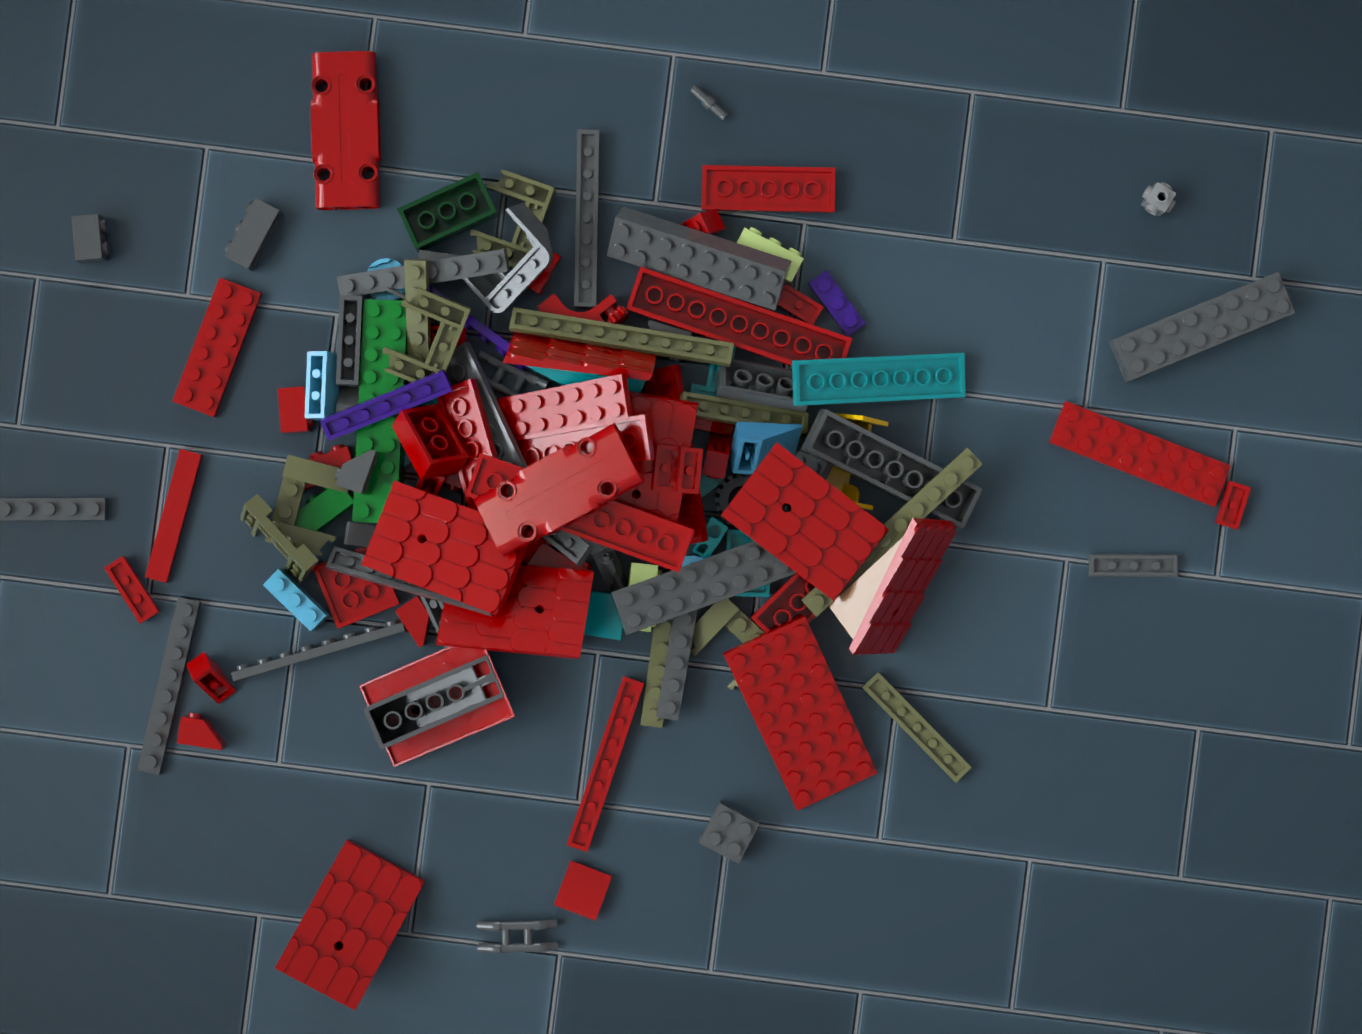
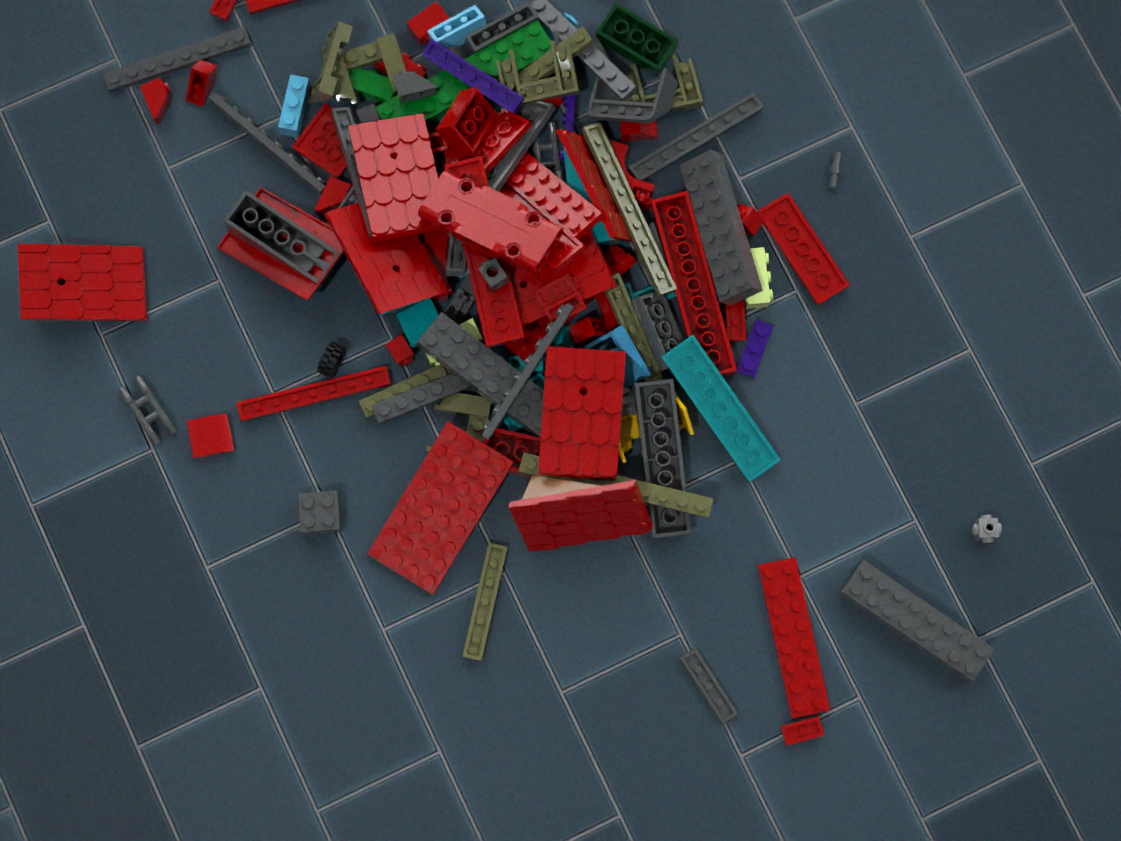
camera: 50 degrees right, 10 degrees down
(584, 726) = (331, 359): none -> black tyre
(618, 653) = (400, 351): none -> red brick
(622, 525) = (493, 282): none -> dark grey brick
(723, 538) = (522, 377): none -> dark grey plate

